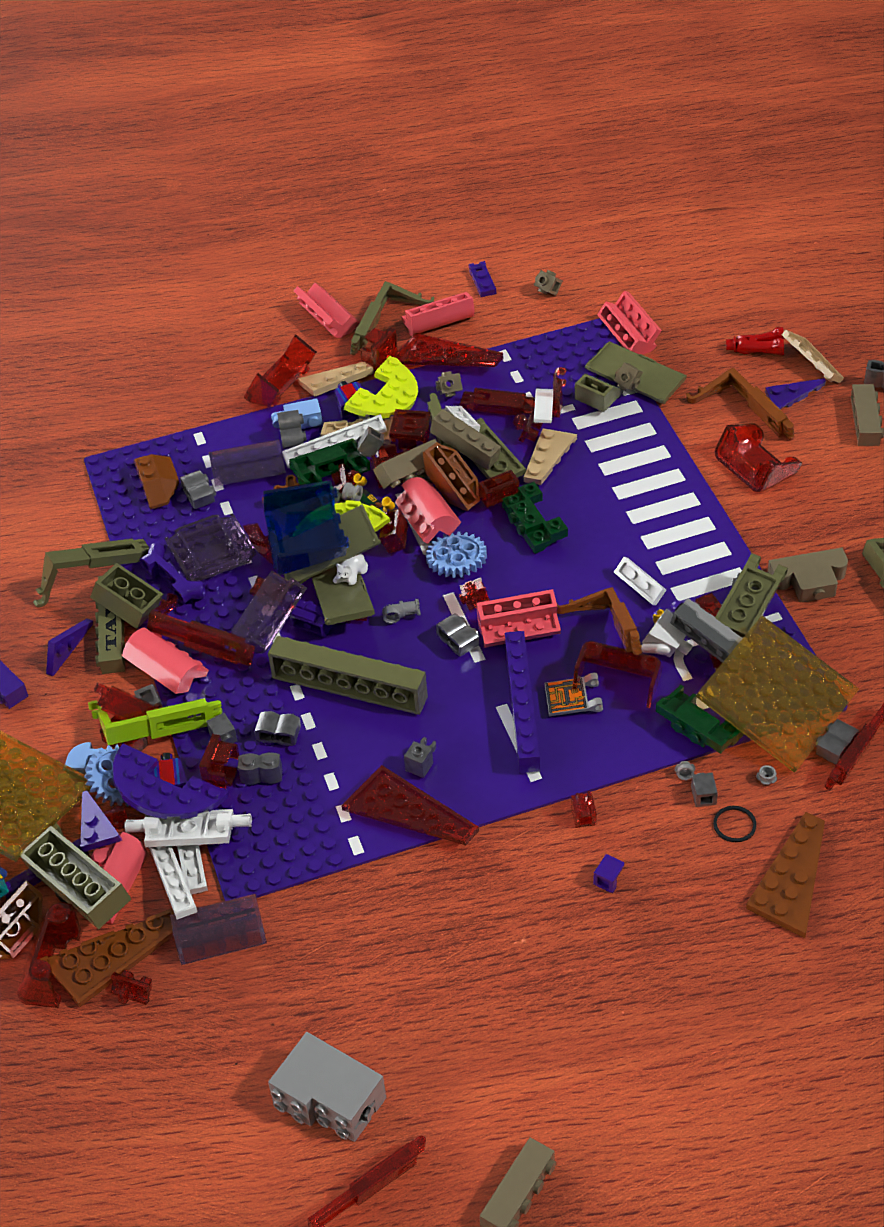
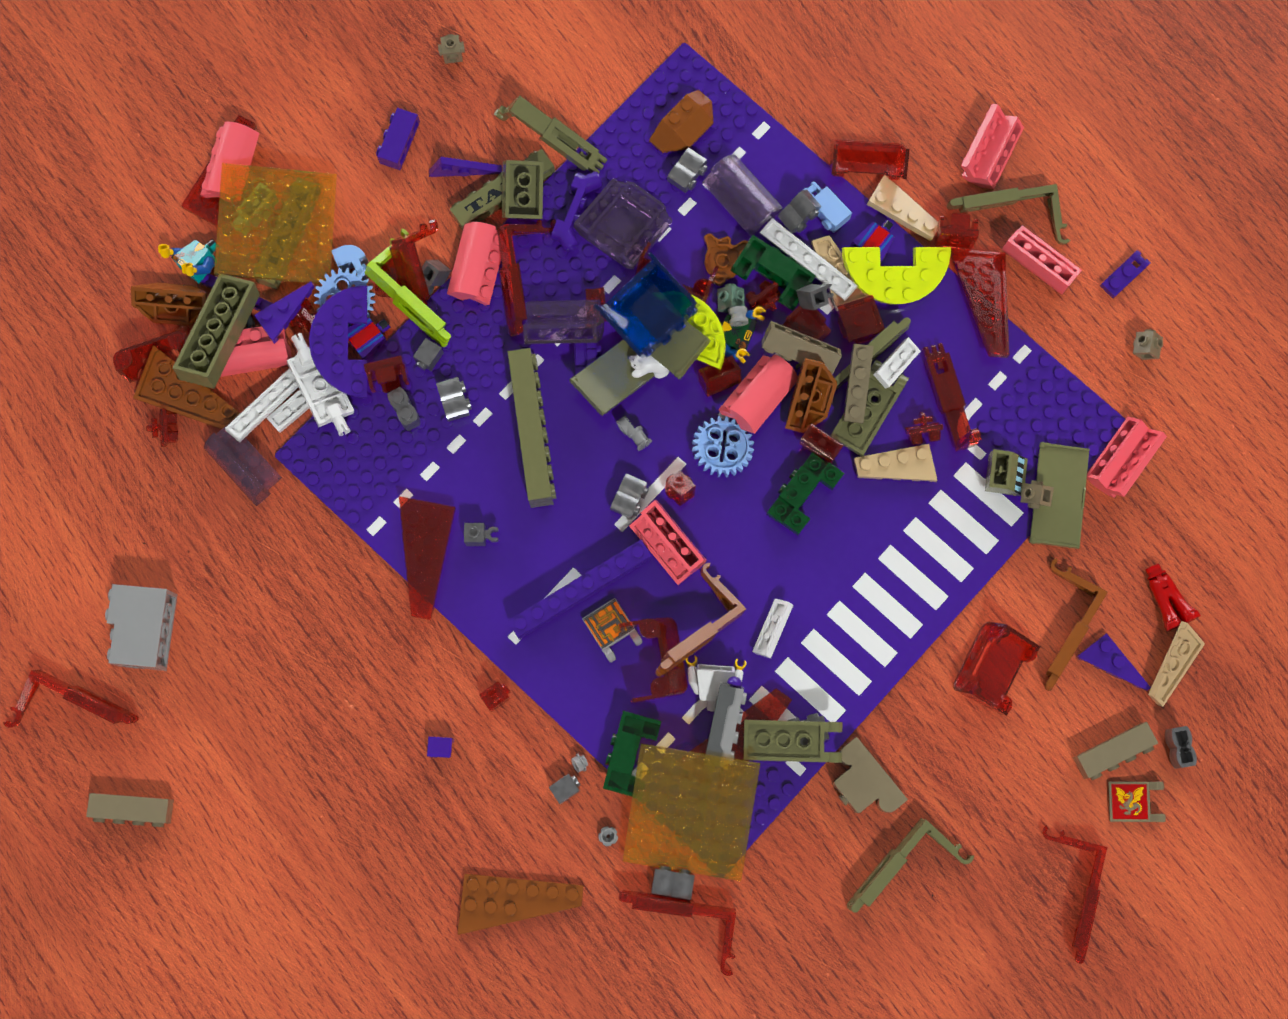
camera: 60 degrees right, 30 degrees up
(453, 379) = (940, 325): dark tan brick -> none
(543, 406) = (954, 430): white slope -> none
(729, 838) = (564, 832): black piece -> none

